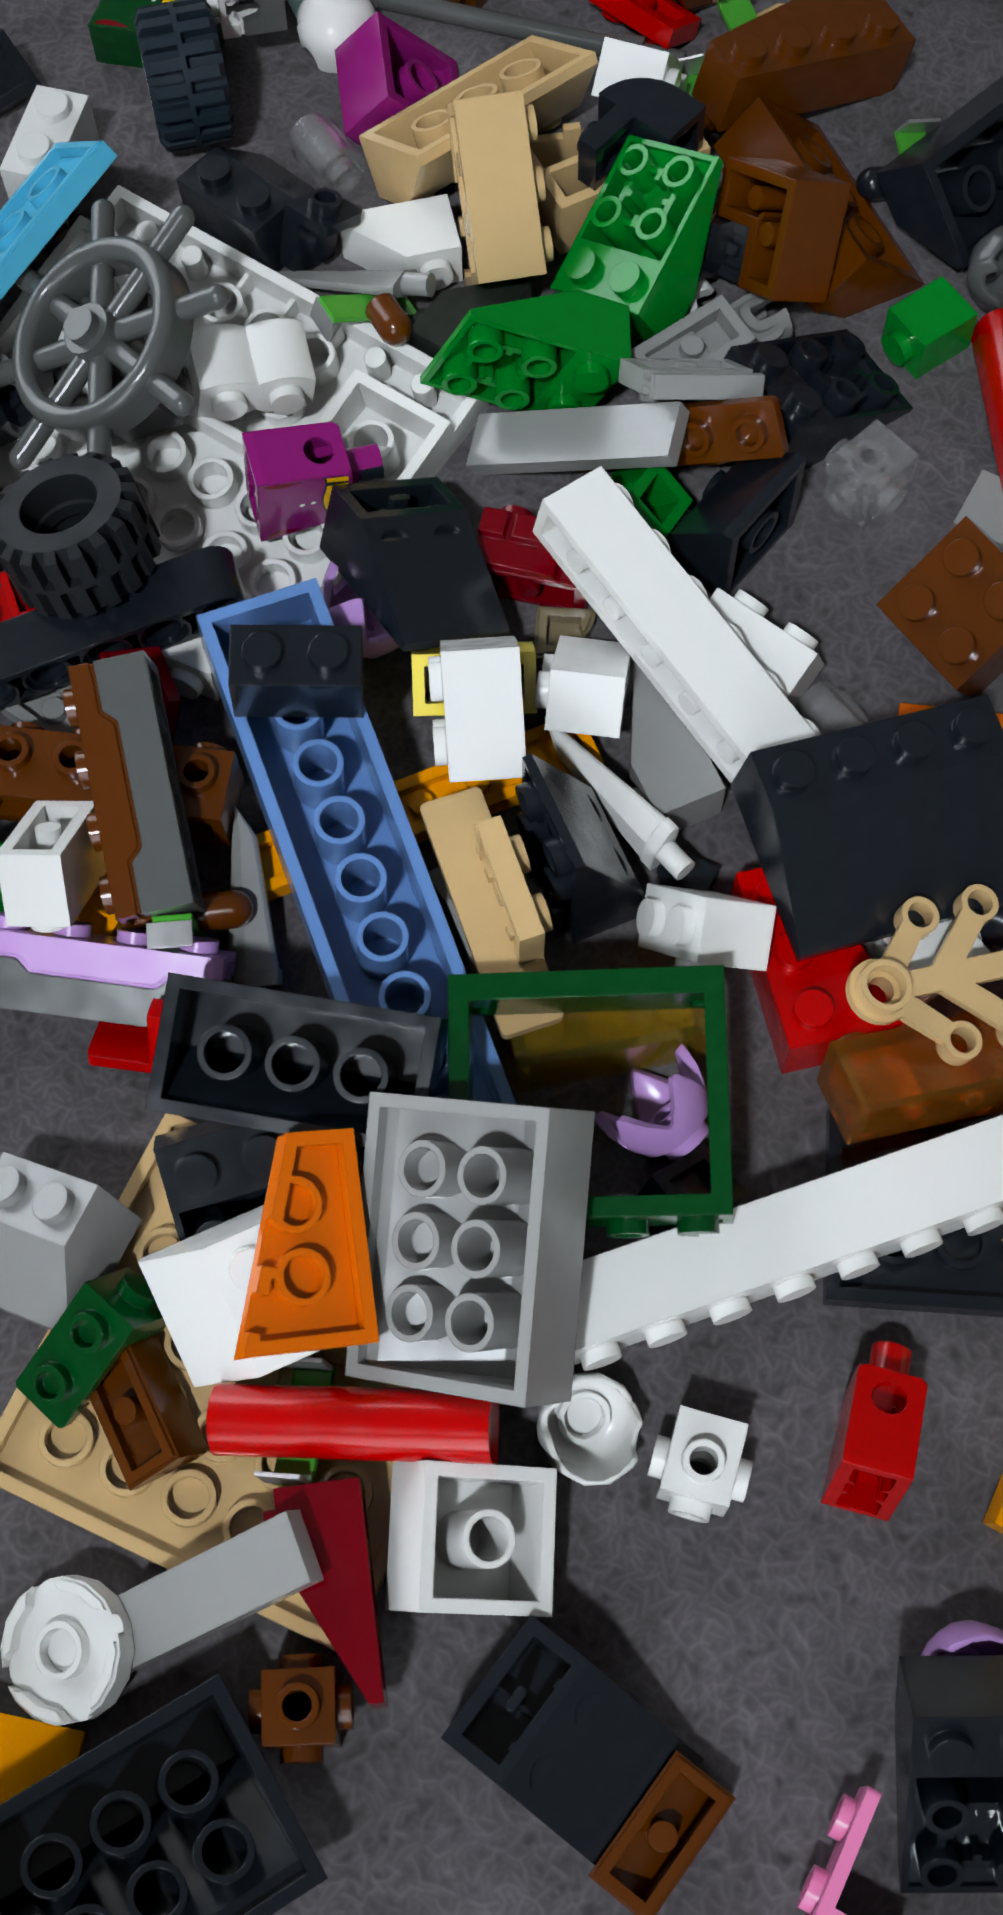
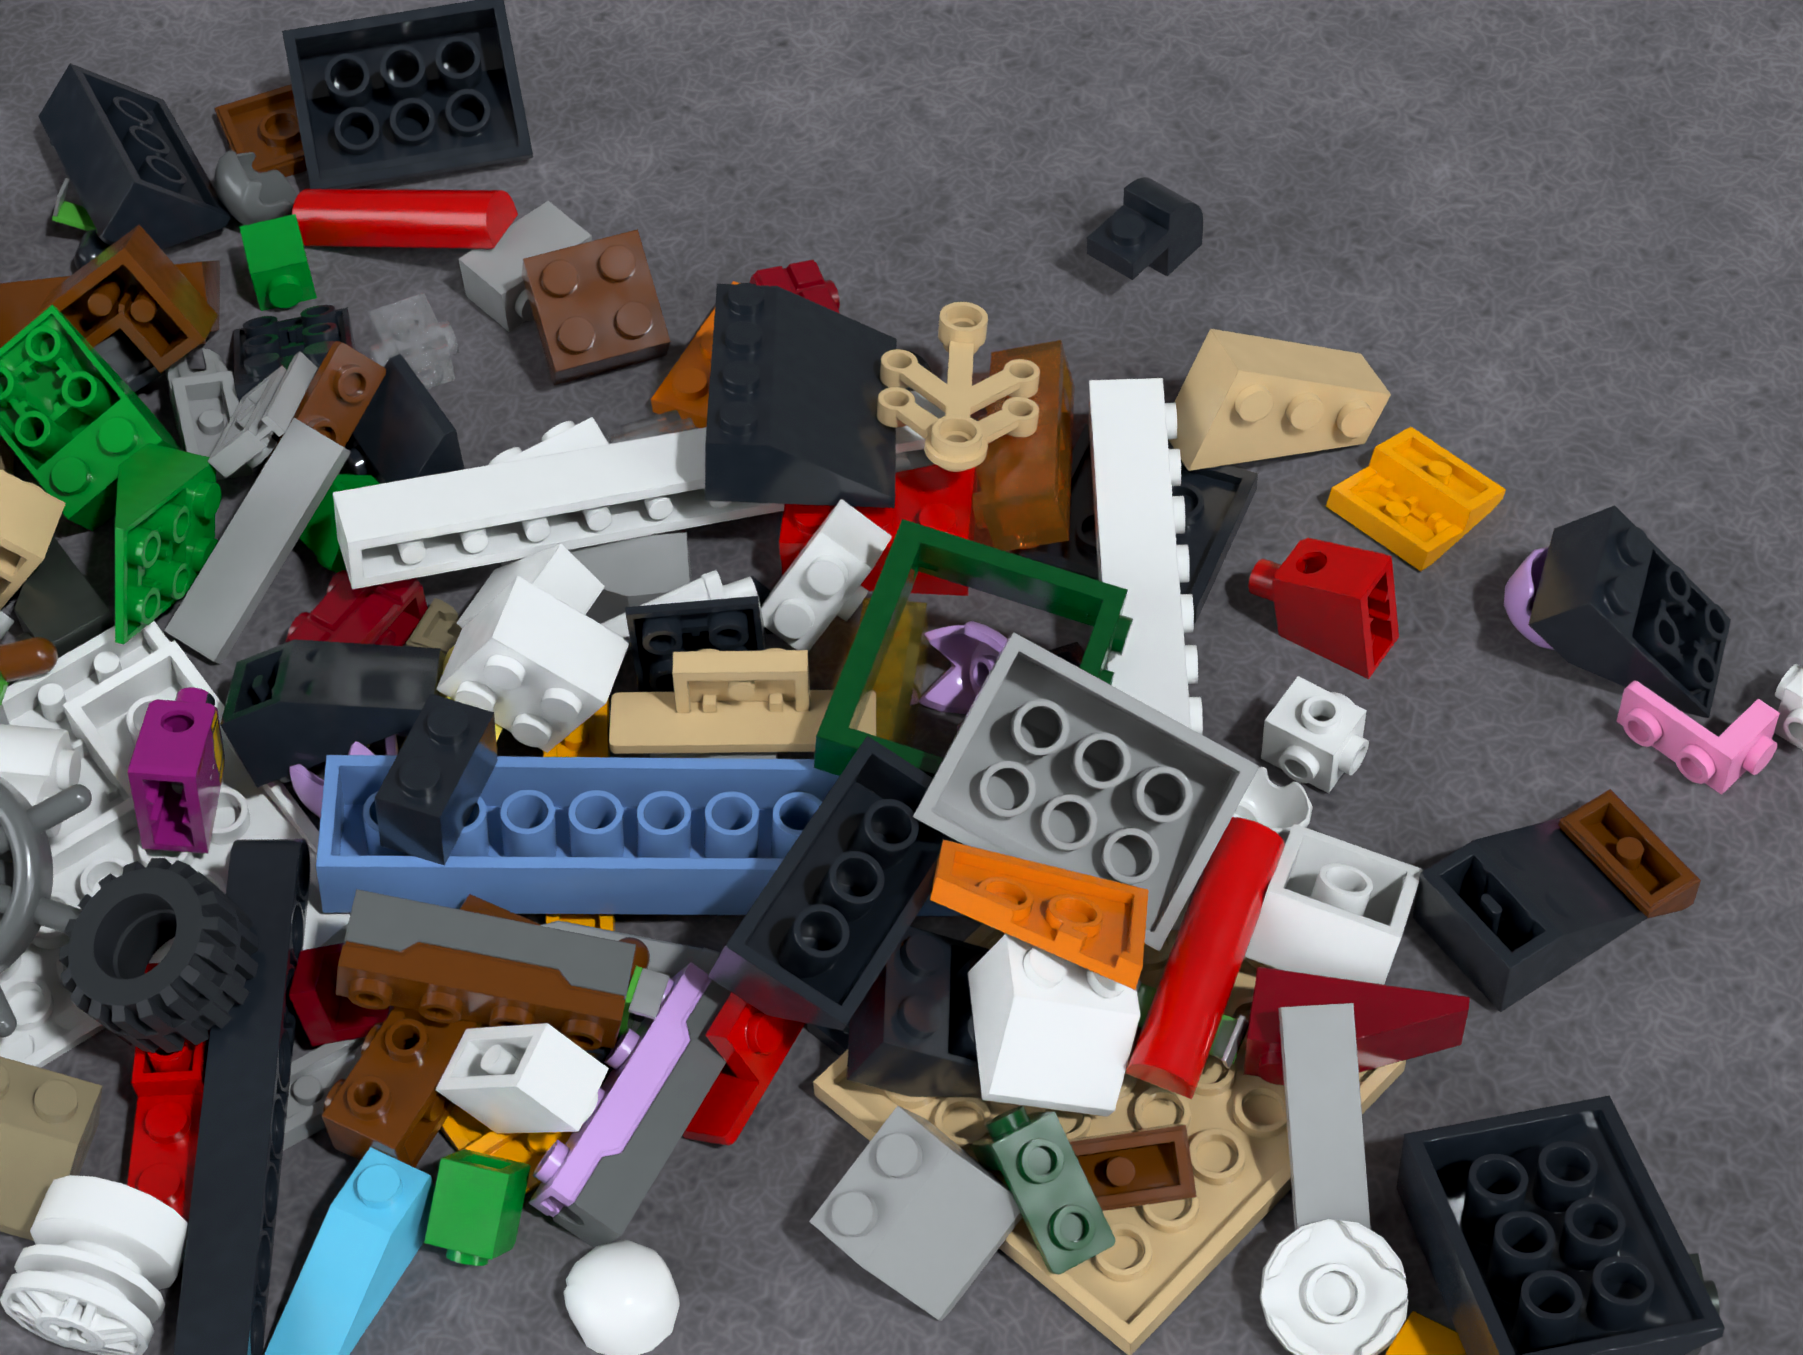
camera: 70 degrees left, 15 degrees down
(321, 1729) = (1445, 1090): reddish brown brick -> none

